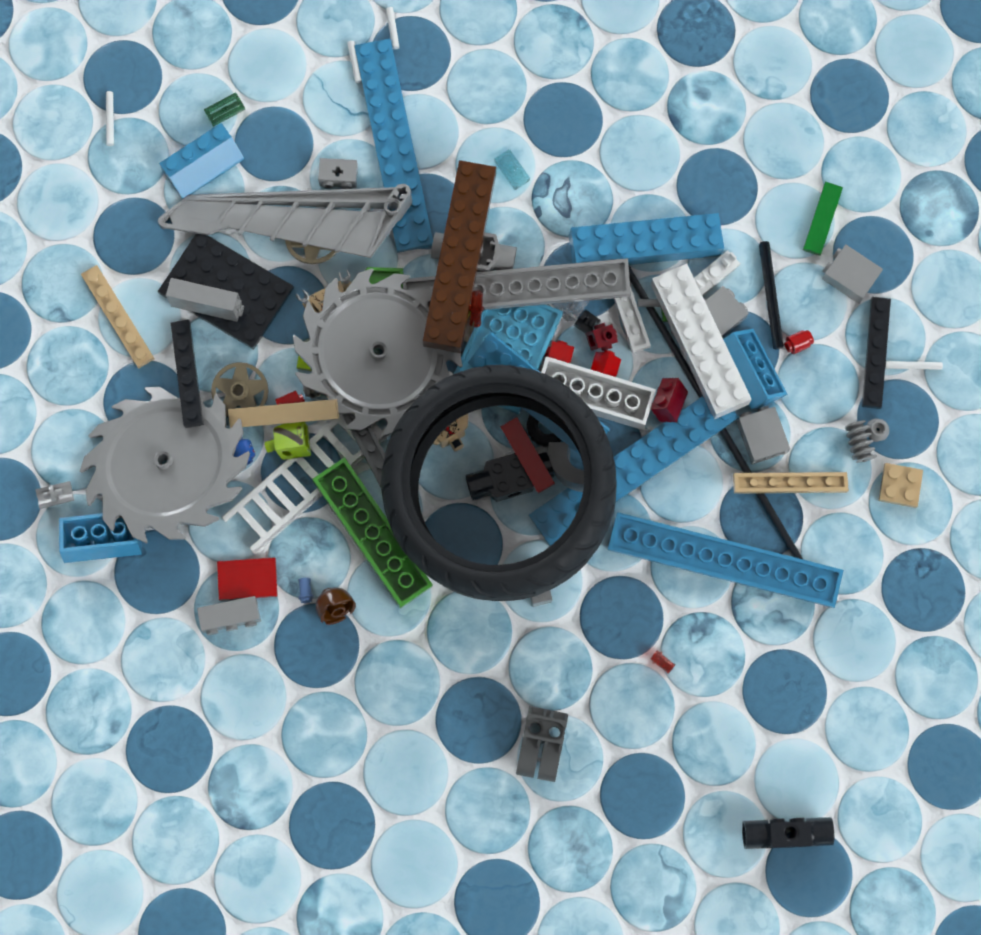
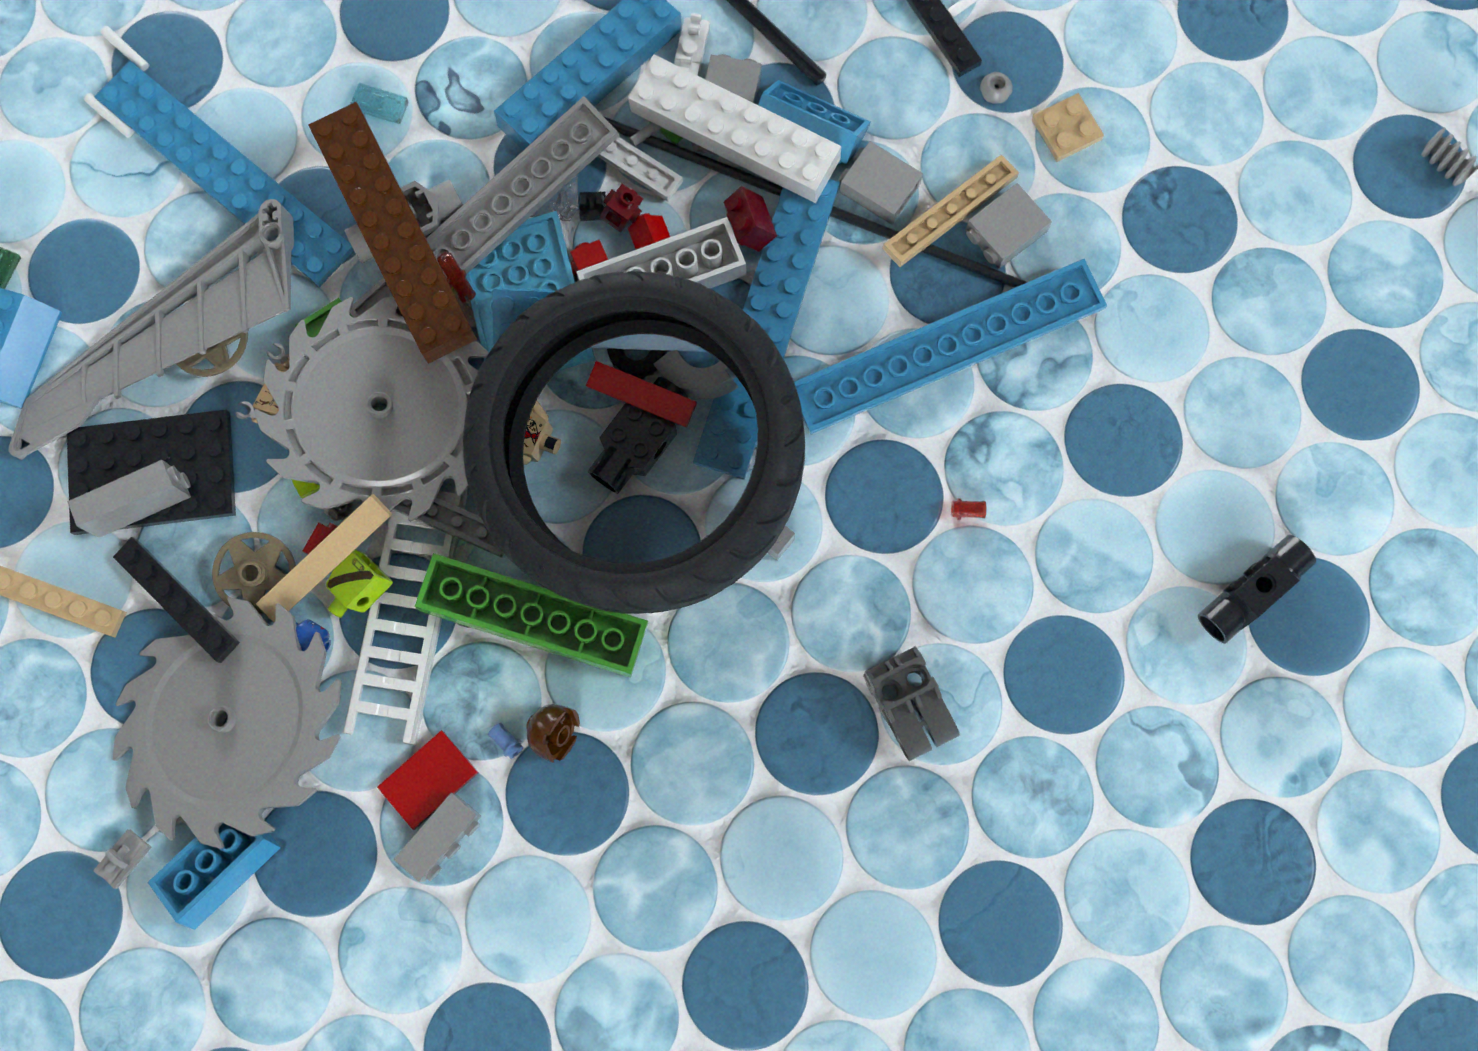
camera: 30 degrees left, 0 degrees up
(330, 167) = (170, 246): light grey brick -> none
(799, 341) = (839, 56): red brick -> none
(816, 517) = (1007, 226): none -> light grey brick
(859, 441) = (989, 112): light grey piece -> none

